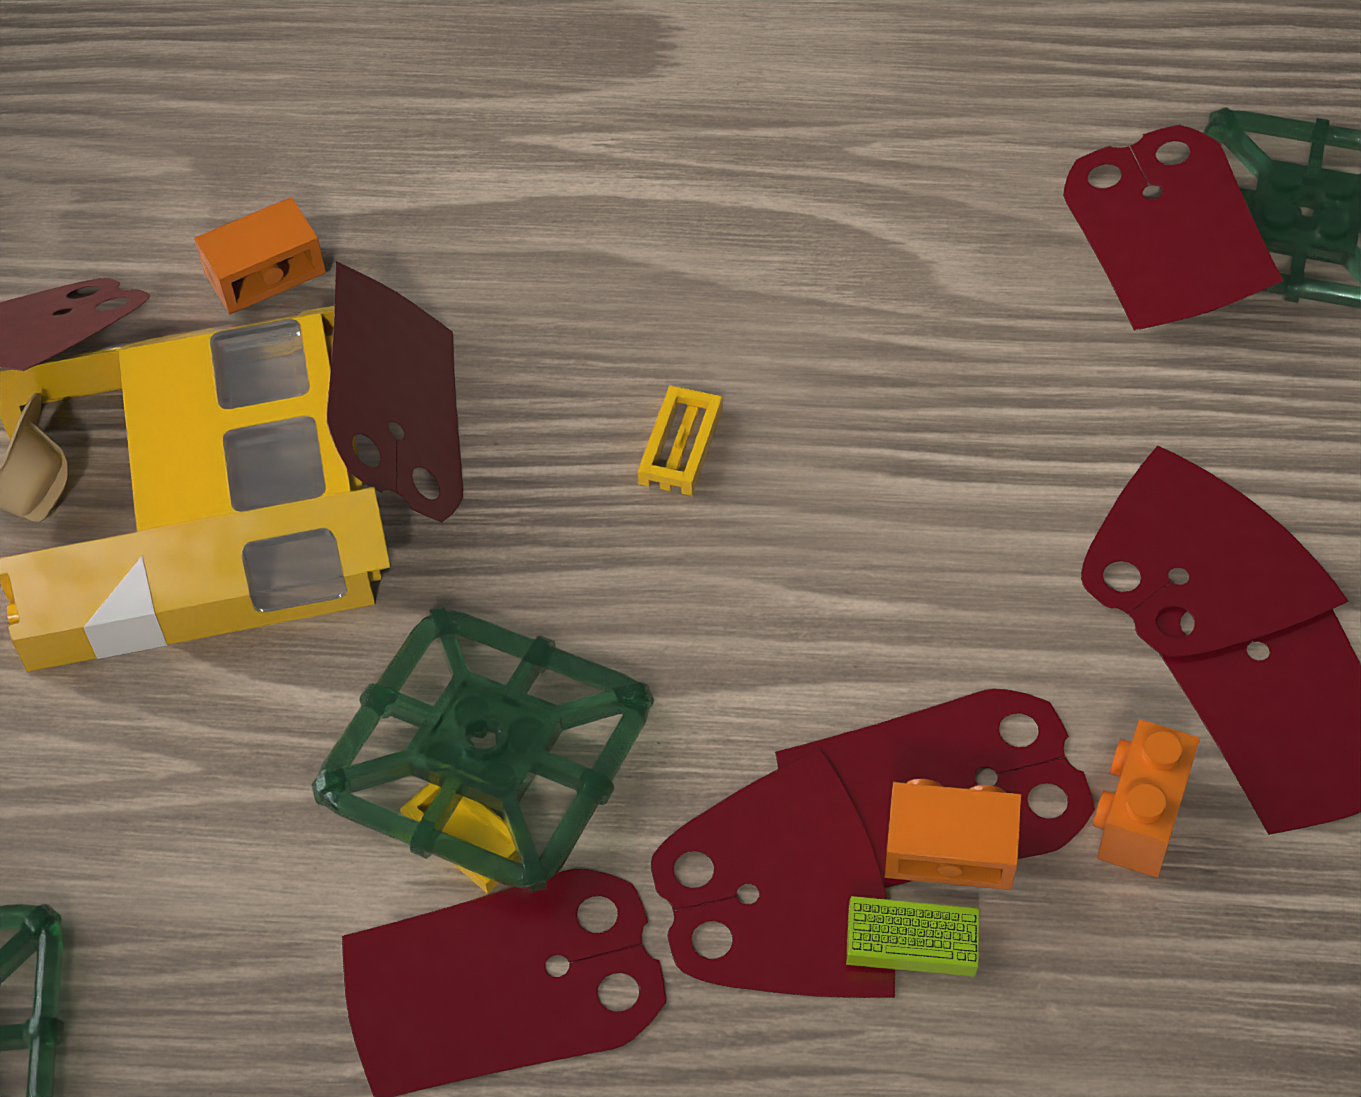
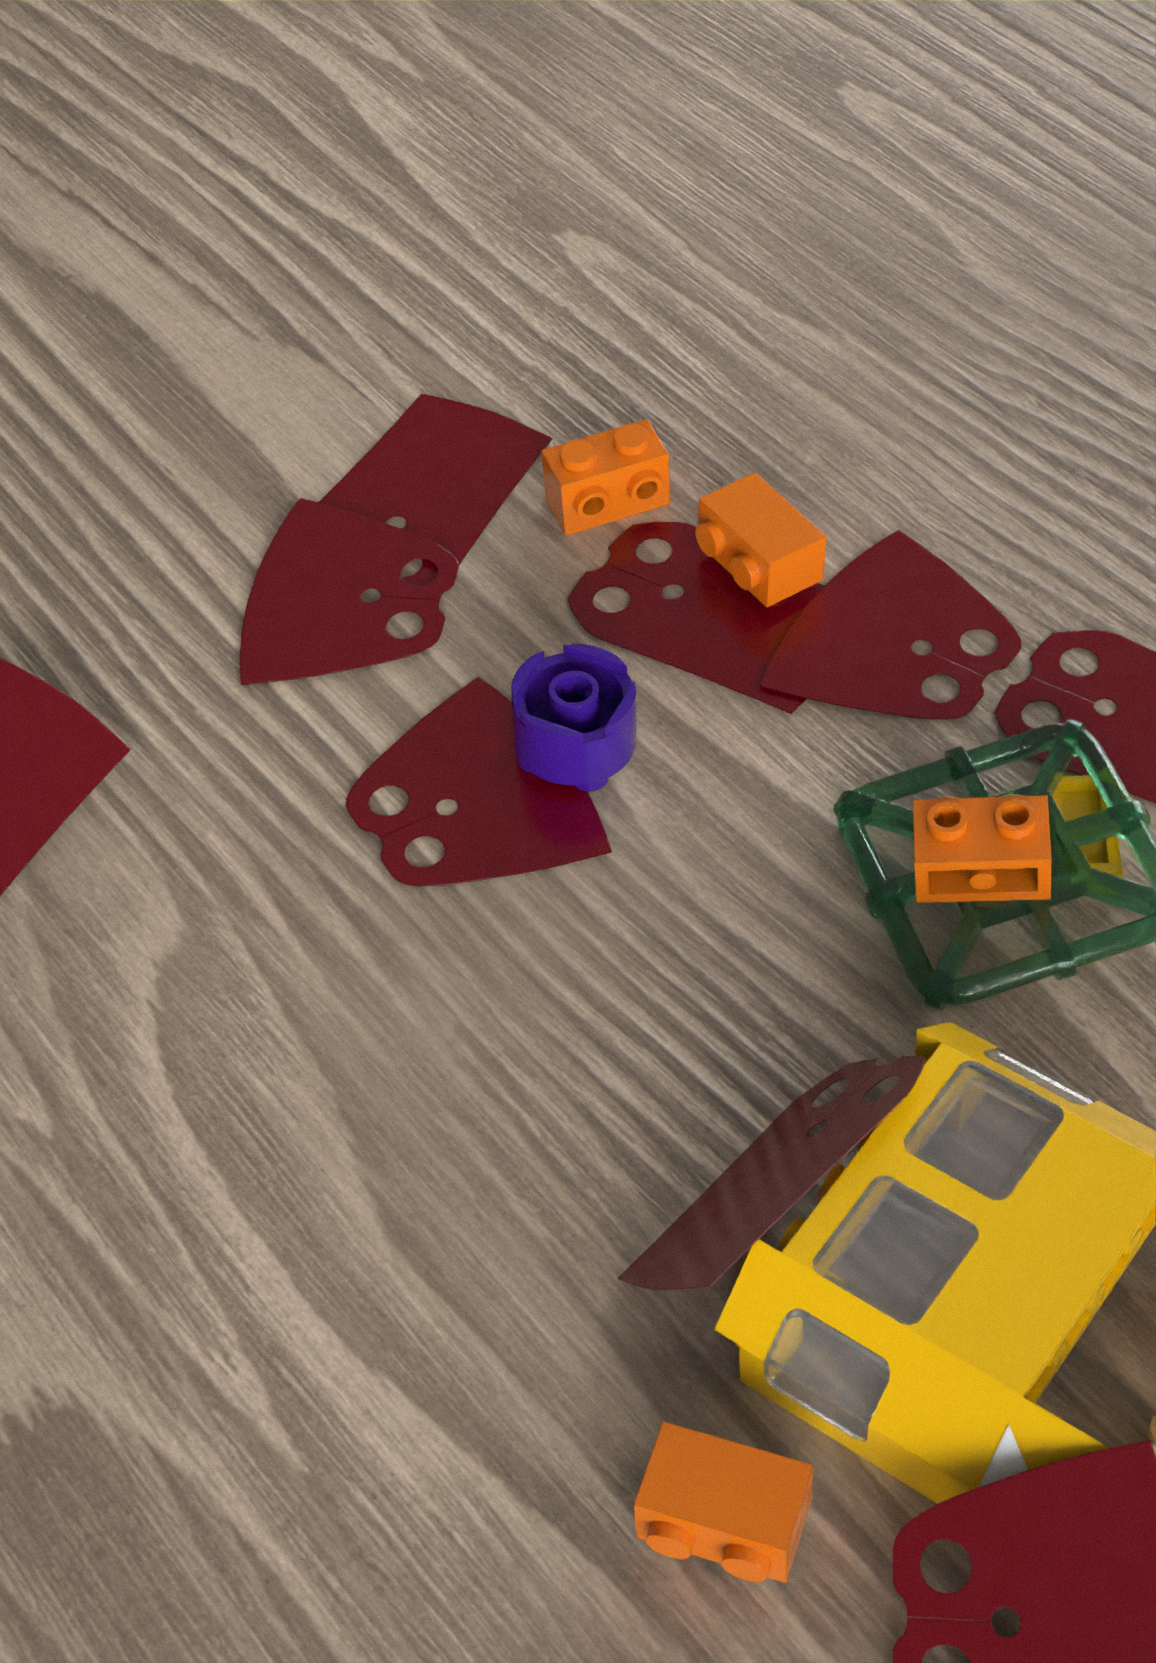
camera: 130 degrees left, 5 degrees down
(484, 687) = (982, 849): none -> orange brick
(670, 476) = (568, 987): yellow tile -> none
(862, 528) = (504, 815): none -> dark red piece
(885, 573) = (574, 716): none -> dark purple brick
(913, 936) = (855, 537): lime tile -> none

